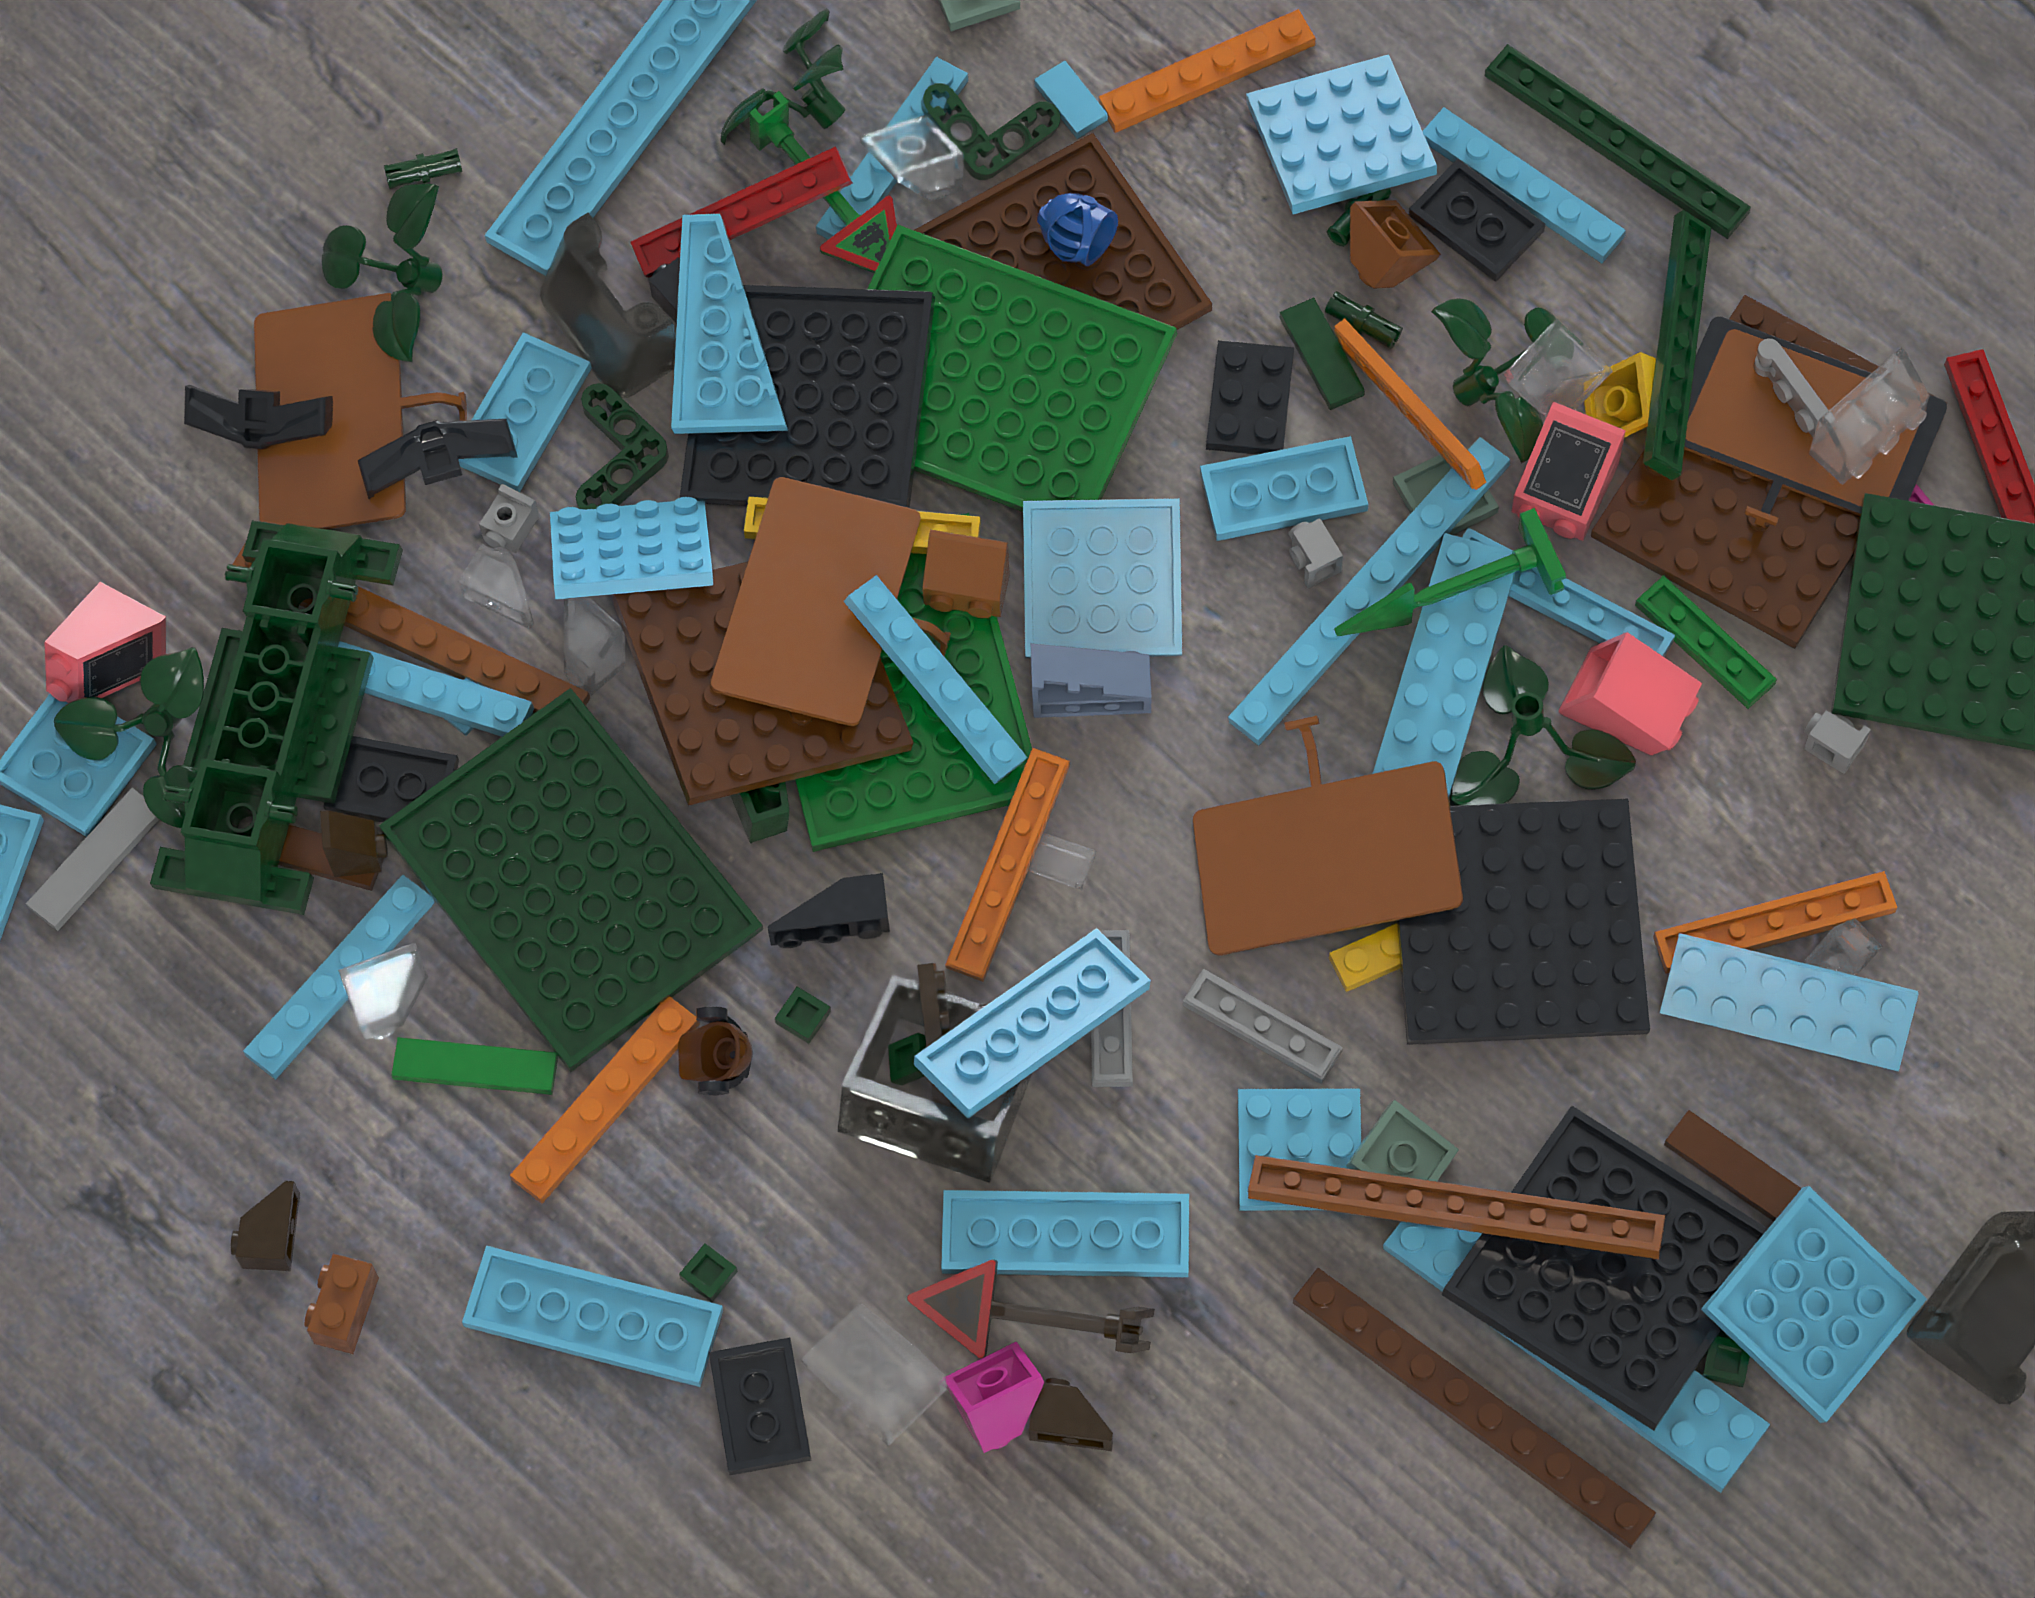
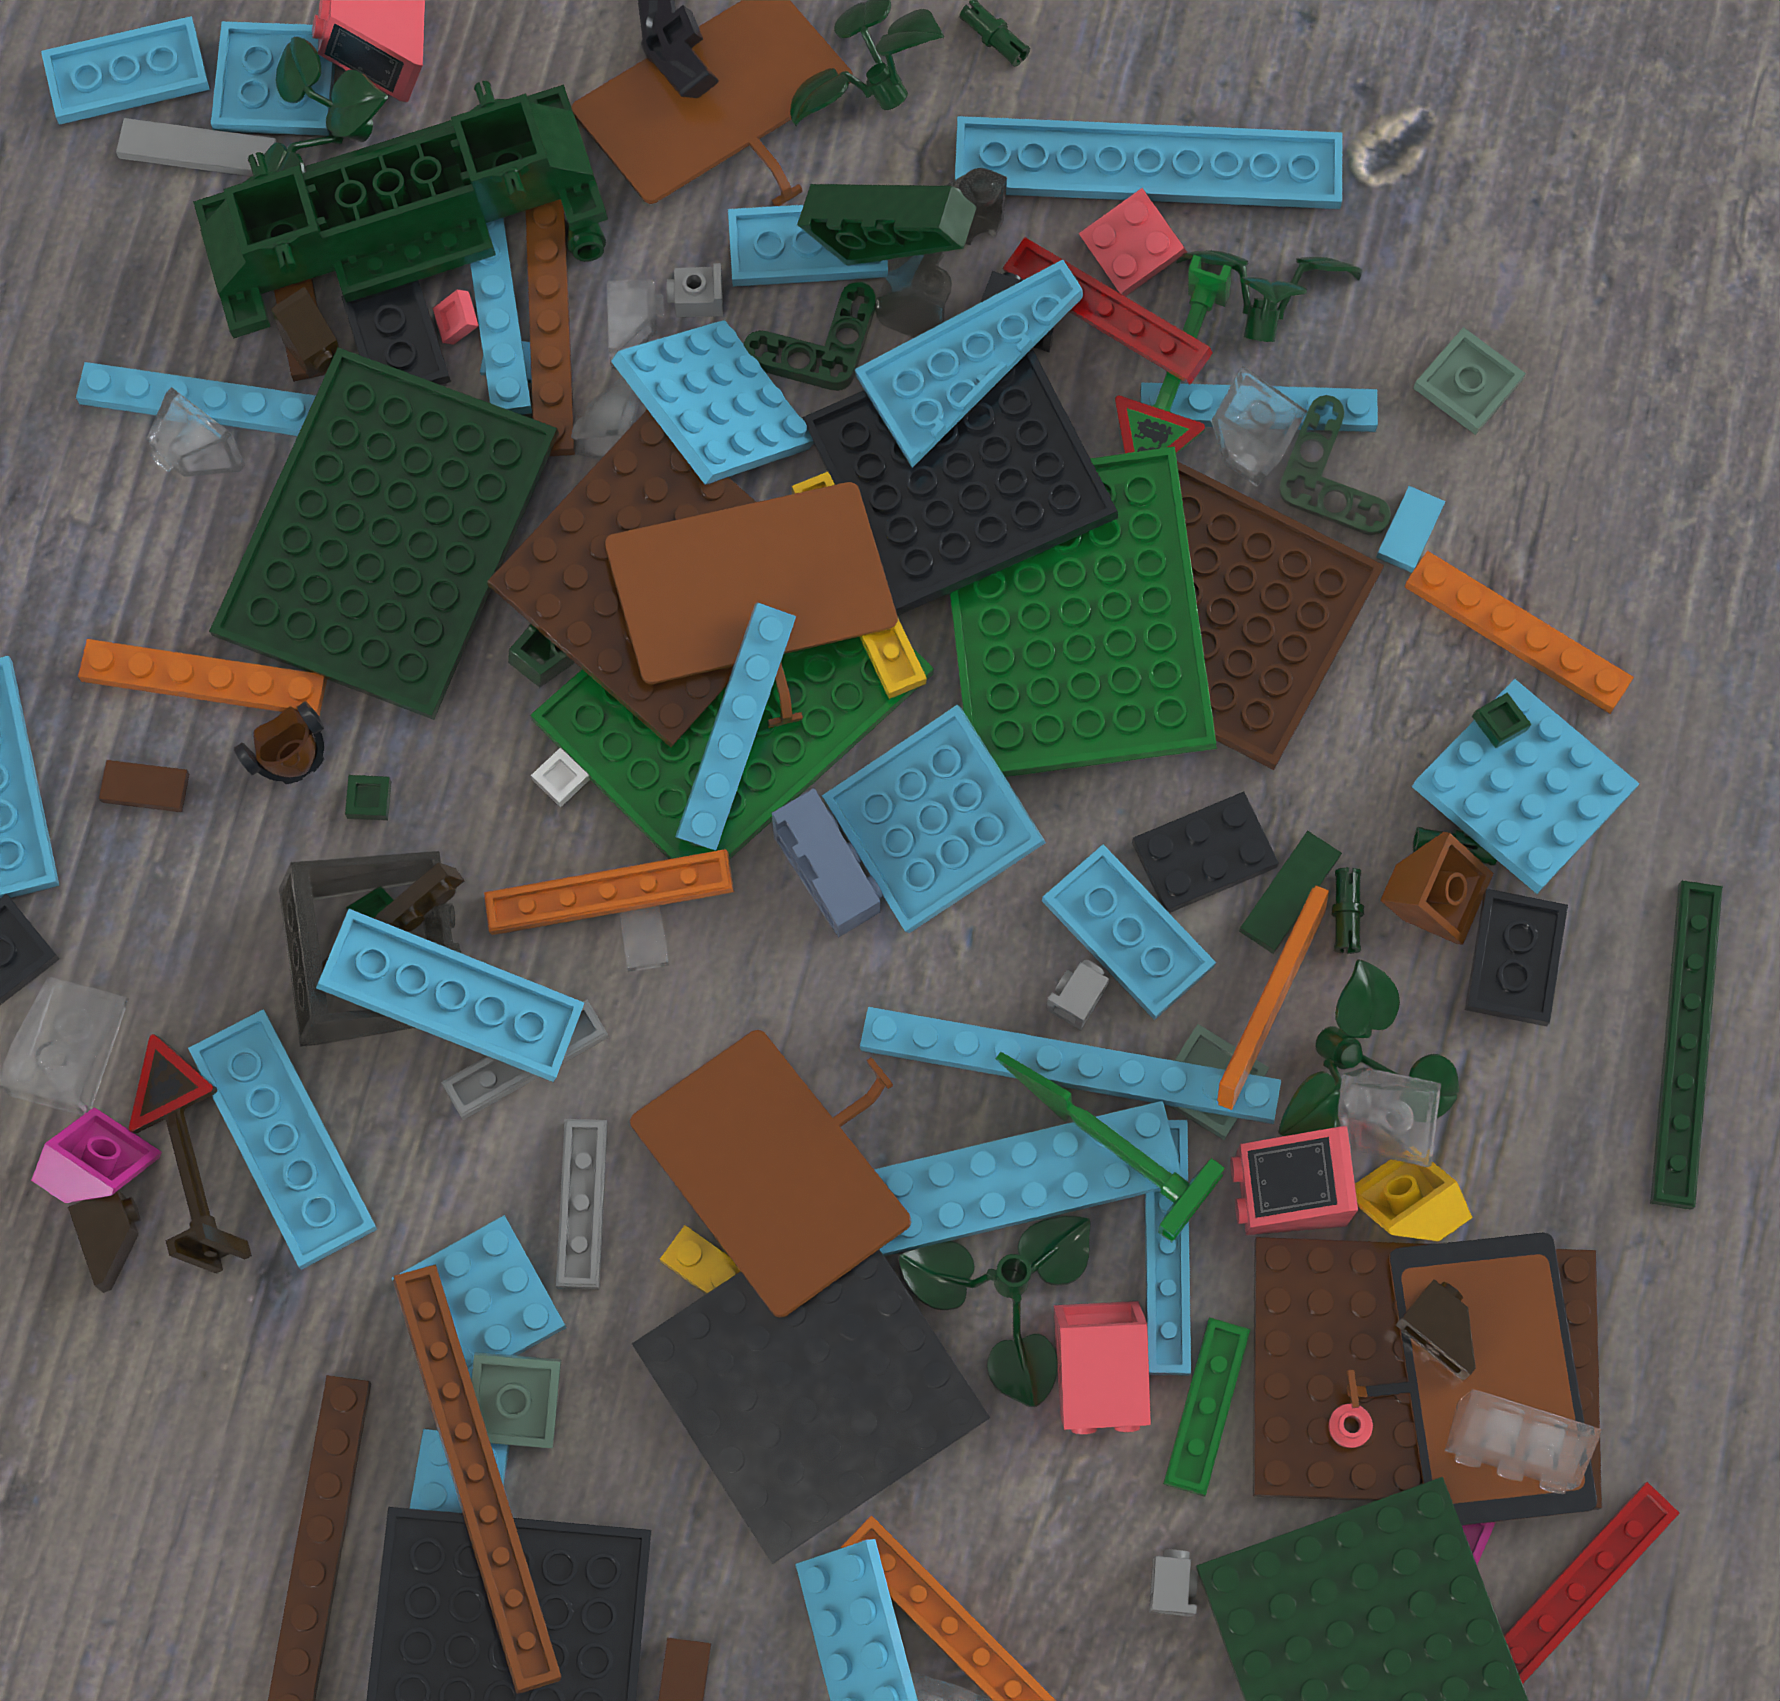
camera: 55 degrees right, 5 degrees up
(404, 723) = (455, 317): none -> coral plate
(405, 588) = (587, 238): none -> dark green cone
(435, 451) = (719, 194): black plate -> none
(474, 1066) = (174, 554): green tile -> none
(567, 322) = (886, 220): none -> dark green wedge
(675, 1195) = (144, 786): none -> reddish brown tile
(688, 164) = (1132, 242): none -> coral plate
(708, 1272) = (83, 853): dark green plate -> none
(842, 910) = (487, 775): black slope -> none
(881, 852) = (560, 777): none -> white plate
(966, 574) = (856, 697): dark orange slope -> none
(1077, 227) = (1267, 601): blue helmet -> none
(1280, 117) = (1501, 720): none -> dark green tile
(1525, 185) = (1582, 981): medium azure plate -> none
(1677, 345) = (1492, 1213): dark green tile -> none
(1748, 428) = (1442, 1327): none -> dark brown slope
(1785, 549) = (1345, 1438): none -> coral plate
(1789, 384) = (1512, 1343): light grey plate -> none

